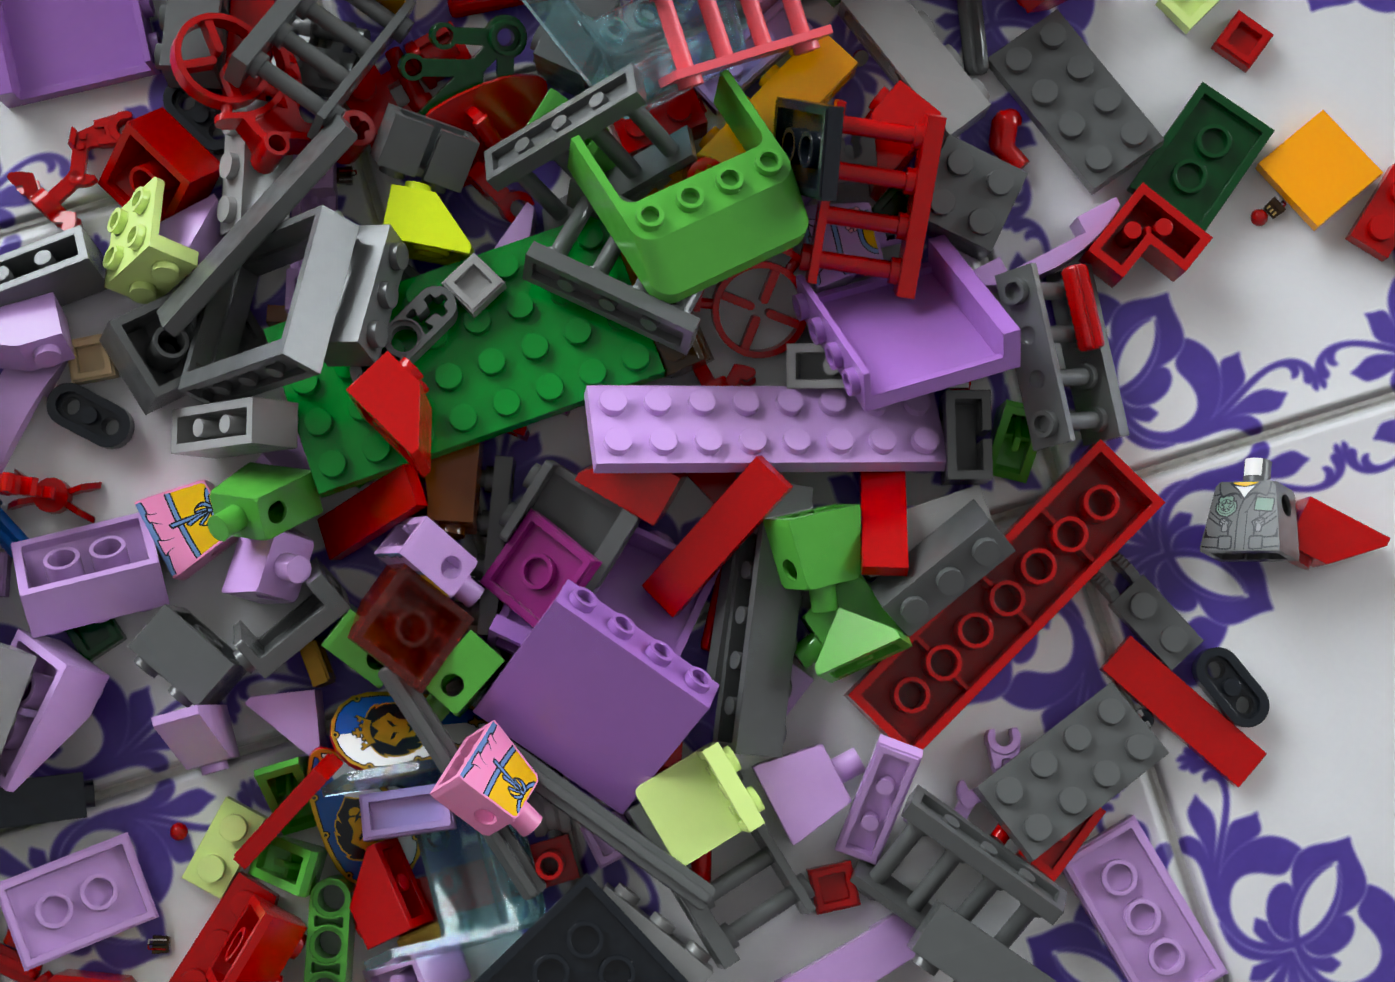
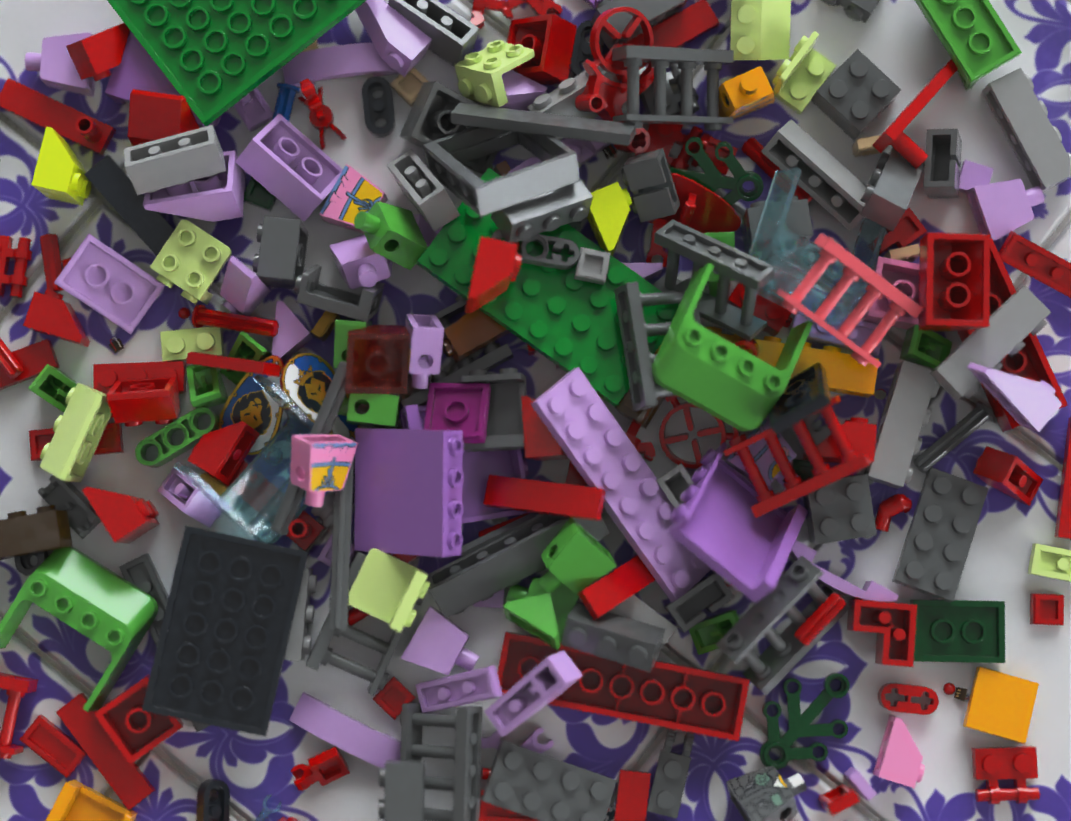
camera: 65 degrees right, 0 degrees up
(120, 778) = (191, 261): none -> yellowish green bracket
(229, 780) = (203, 316): none -> red axle
(372, 512) = (428, 297): red tile -> none
(403, 813) = (273, 428): lavender tile -> none
(946, 710) = (533, 692): none -> lavender slope
(1187, 418) = (800, 724): none -> dark green plant
(1247, 278) = (908, 706): none -> red beam
(1300, 327) = (898, 755): none -> bright pink slope
(1304, 396) = (859, 784): none -> lavender tile
(1309, 432) = (838, 799): none -> red tile

